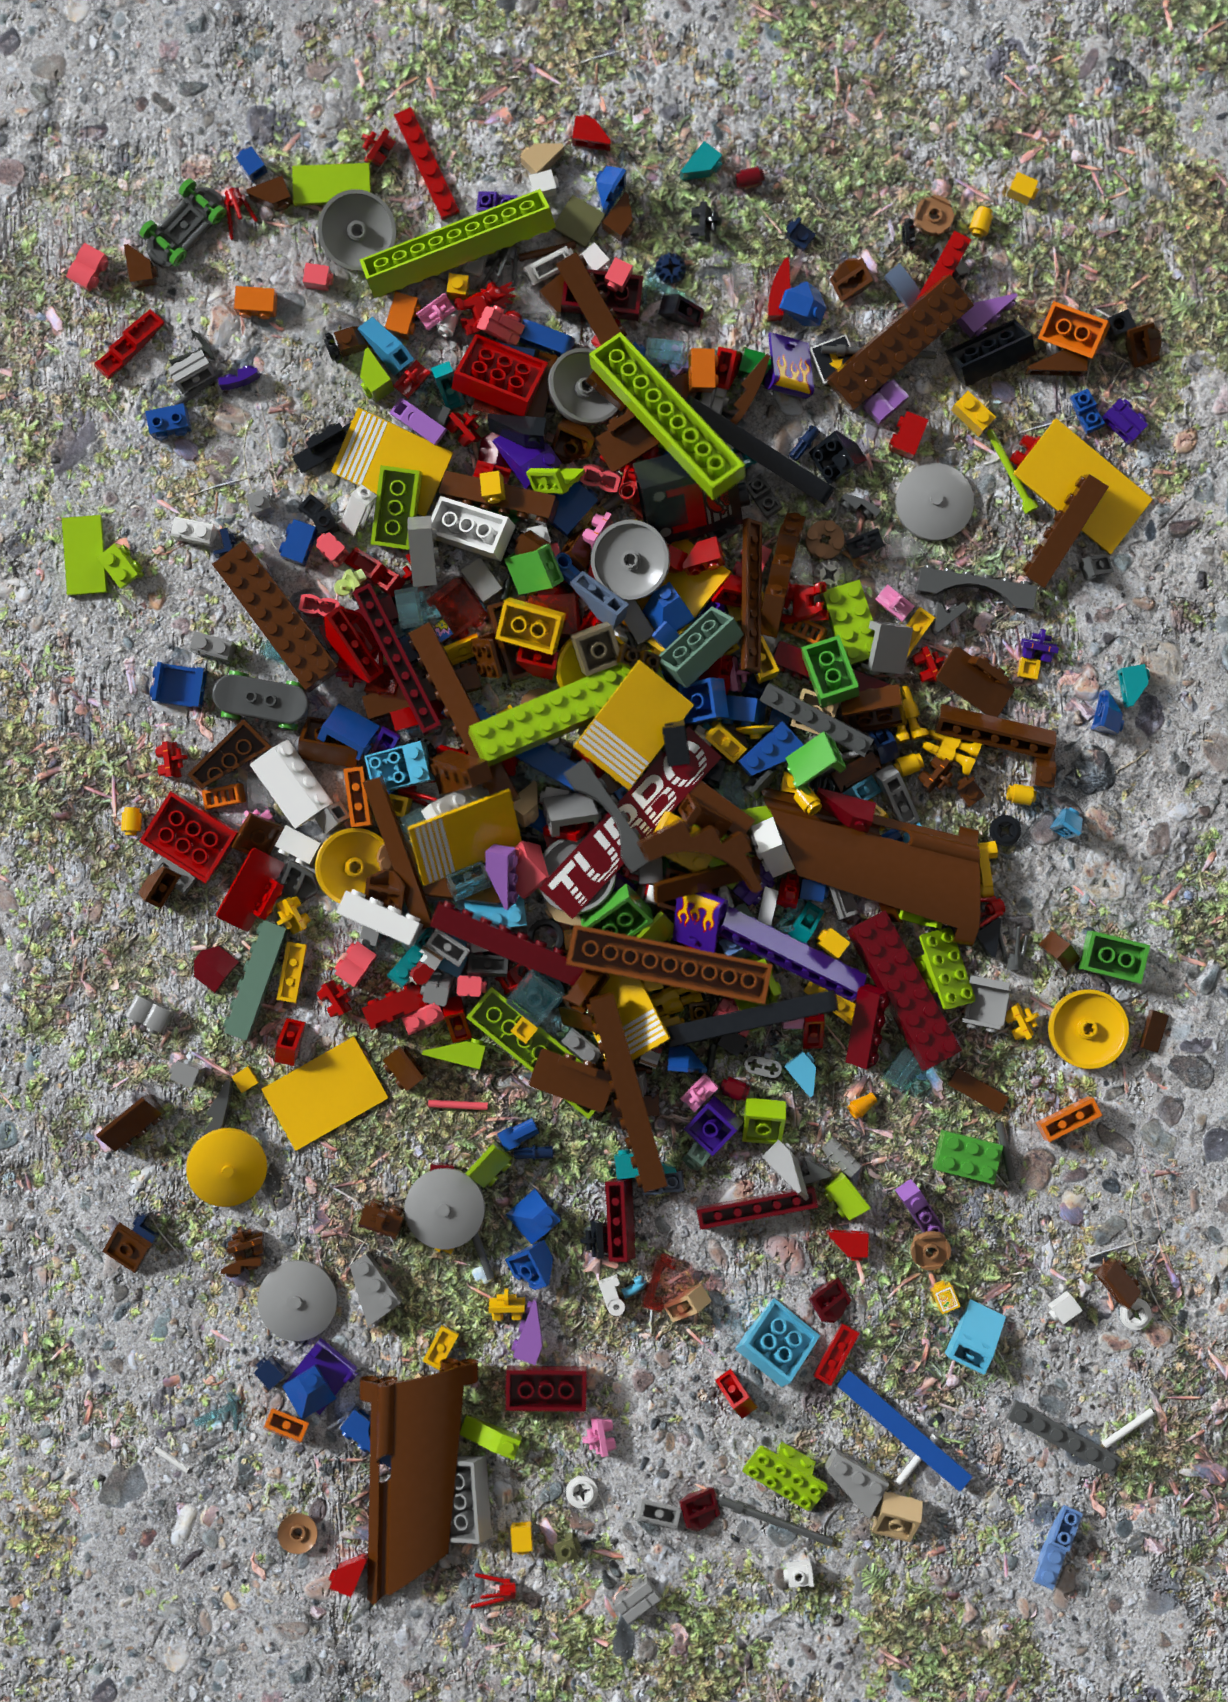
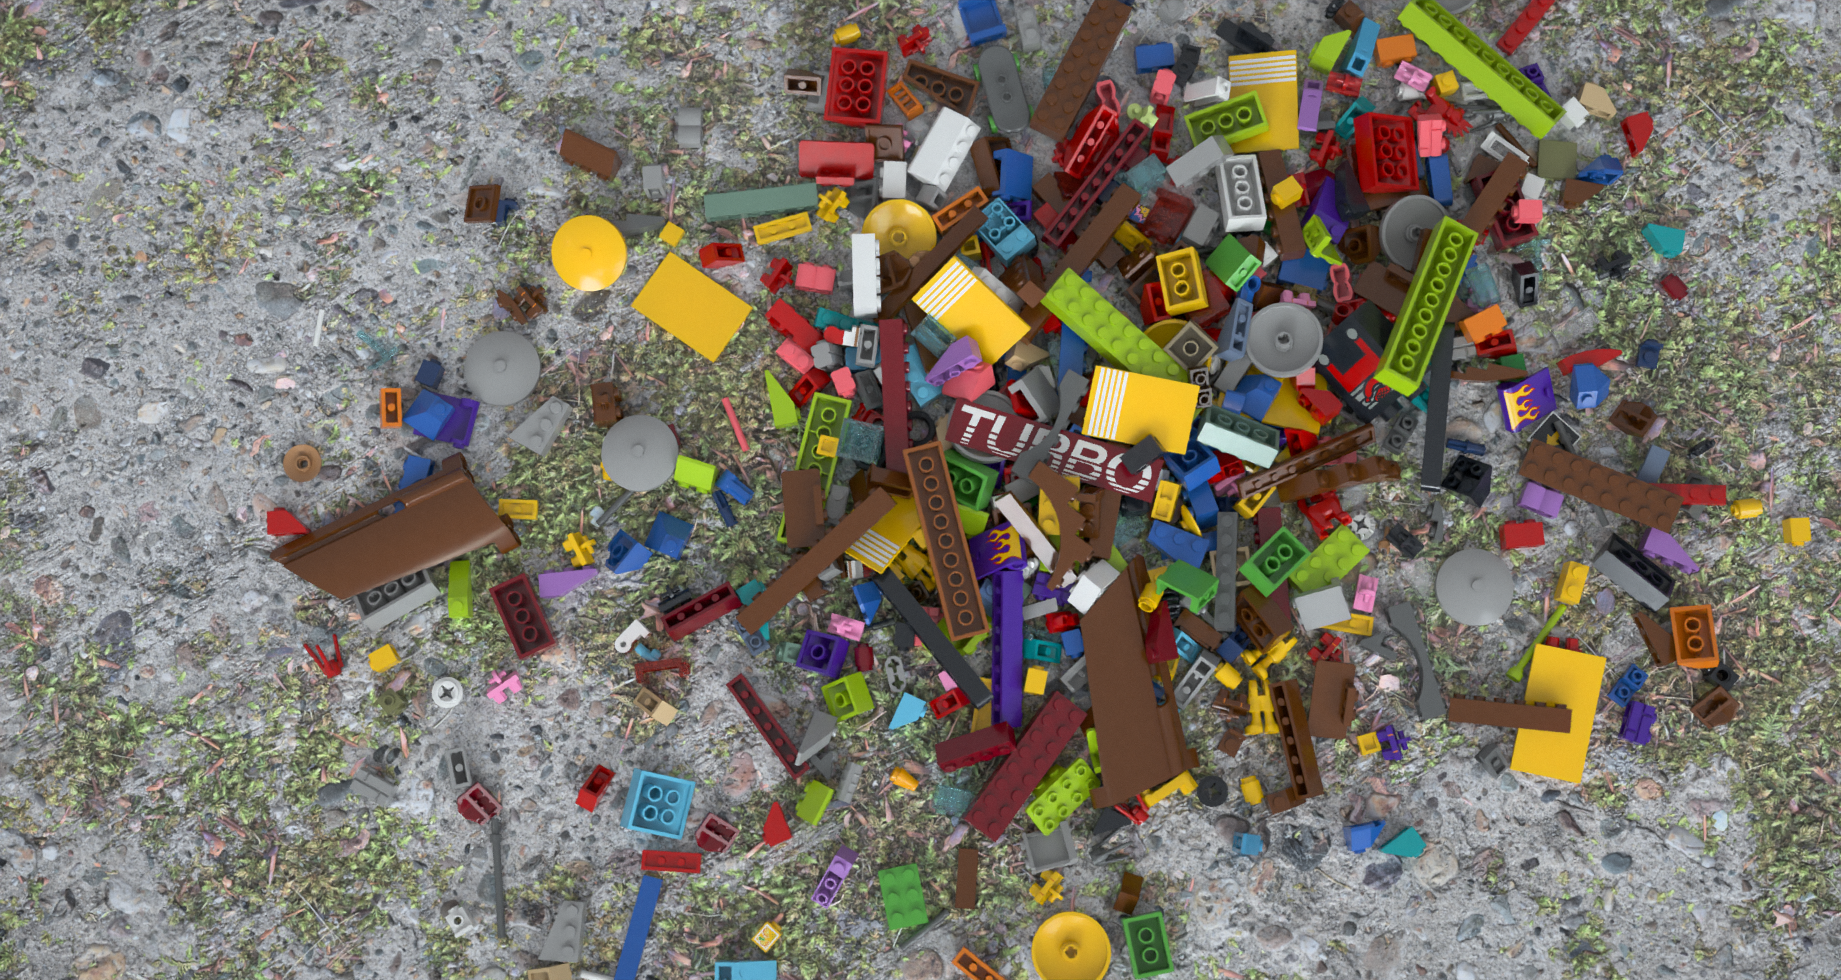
camera: 70 degrees right, 5 degrees down
(214, 967) = (755, 162): dark red slope -> none
(404, 1068) = (745, 362): reddish brown slope -> none
(664, 274) = (1550, 254): dark blue gear -> none
(760, 782) = (1146, 550): dark grey slope -> none
(787, 1474) = (544, 867): lime bracket -> none
(814, 535) = (1400, 503): medium nougat plate -> none
(821, 636) = (1308, 535): orange slope -> none
(926, 1240) = (808, 892): medium nougat plate -> none
(944, 212) = (1721, 471): medium nougat plate -> none

